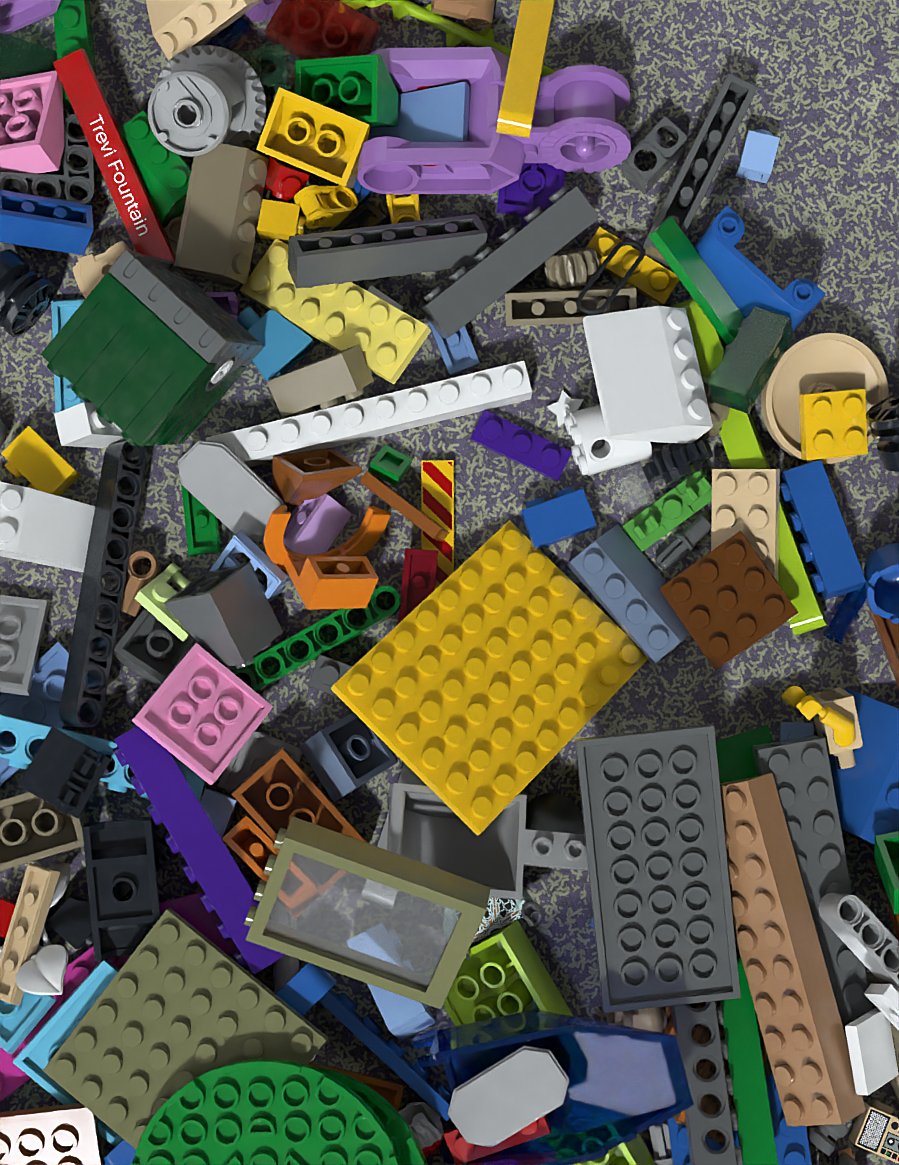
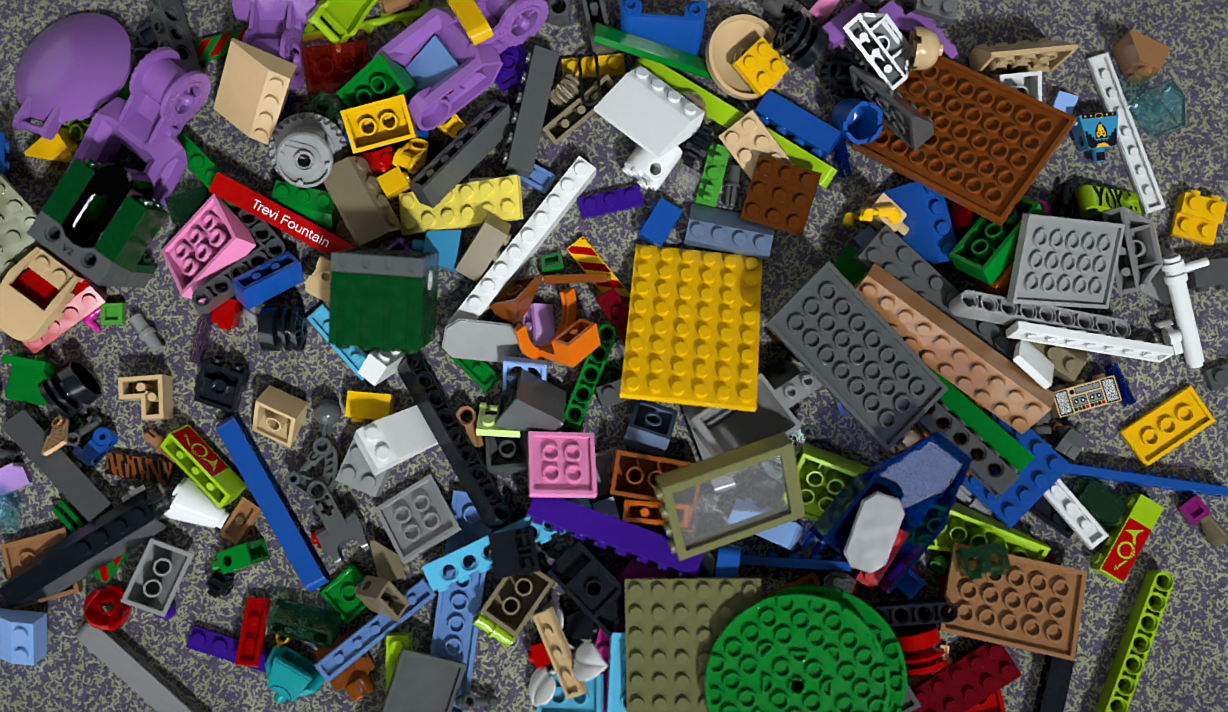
camera: 45 degrees left, 0 degrees up
(564, 407) = (617, 165): white piece -> none
(750, 359) = (695, 64): clear green brick -> none

